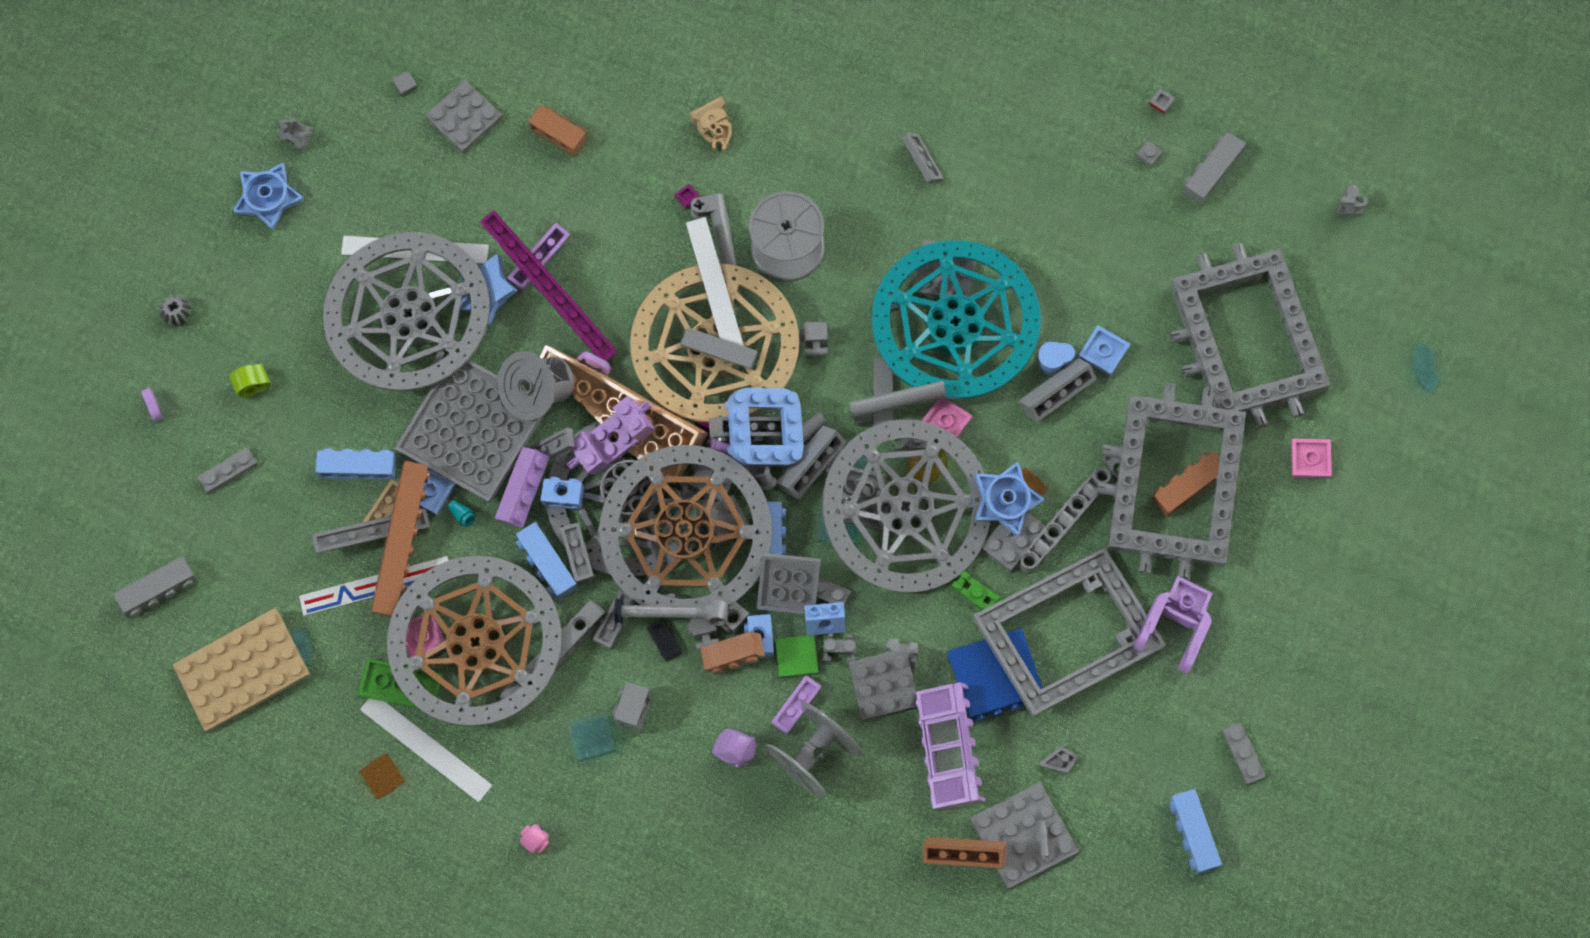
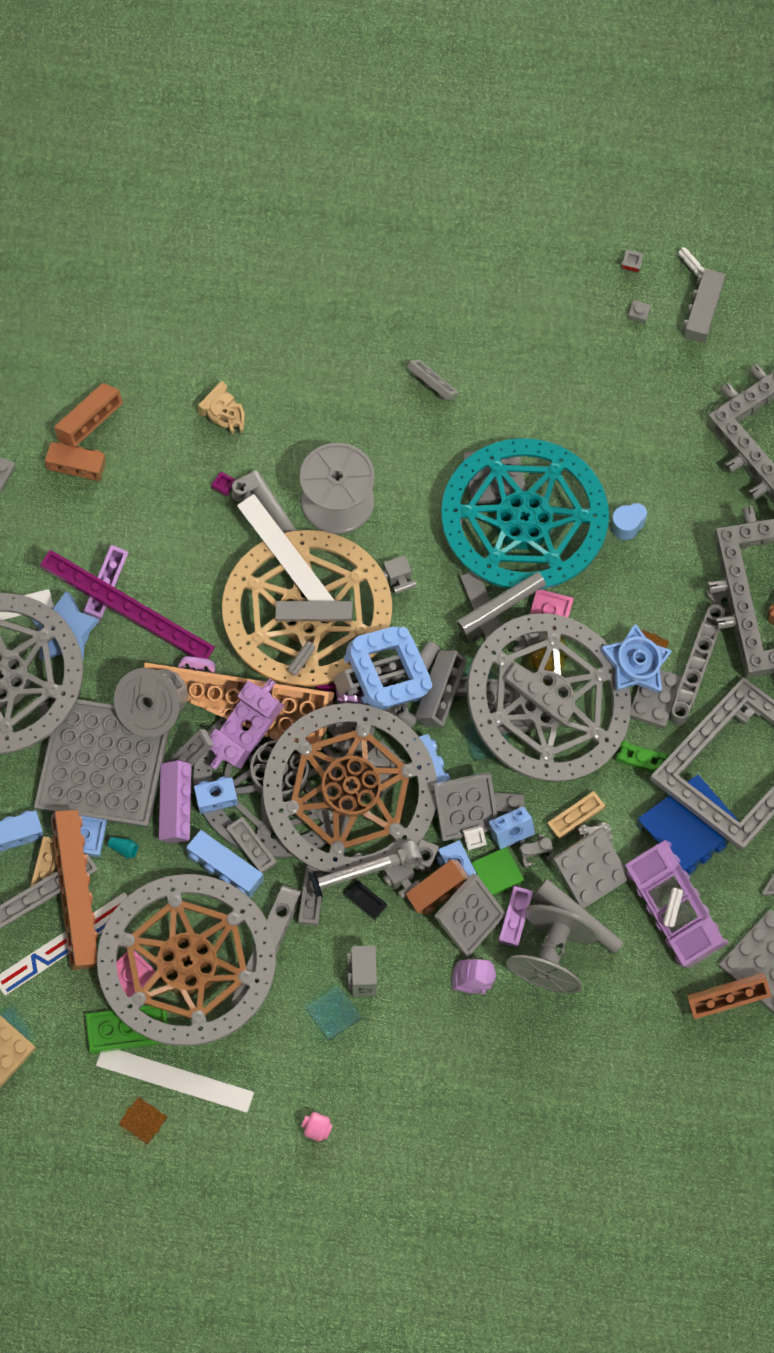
camera: 25 degrees left, 5 degrees down
(585, 90) = (88, 415): none -> nougat brick
(688, 390) = (301, 658): none -> light grey axle
(751, 689) = (470, 915): none -> light grey plate
(787, 615) = (474, 837): none -> white tile
(834, 696) = (551, 894): none -> light grey axle
(891, 627) = (576, 815): none -> tan plate
(896, 500) = (538, 694): none -> light grey plate
(943, 749) = (673, 907): none -> white axle
(1058, 389) = (643, 548): light grey brick -> none
(1104, 350) = (670, 500): light blue plate -> none
(1219, 119) = (692, 263): none -> white axle

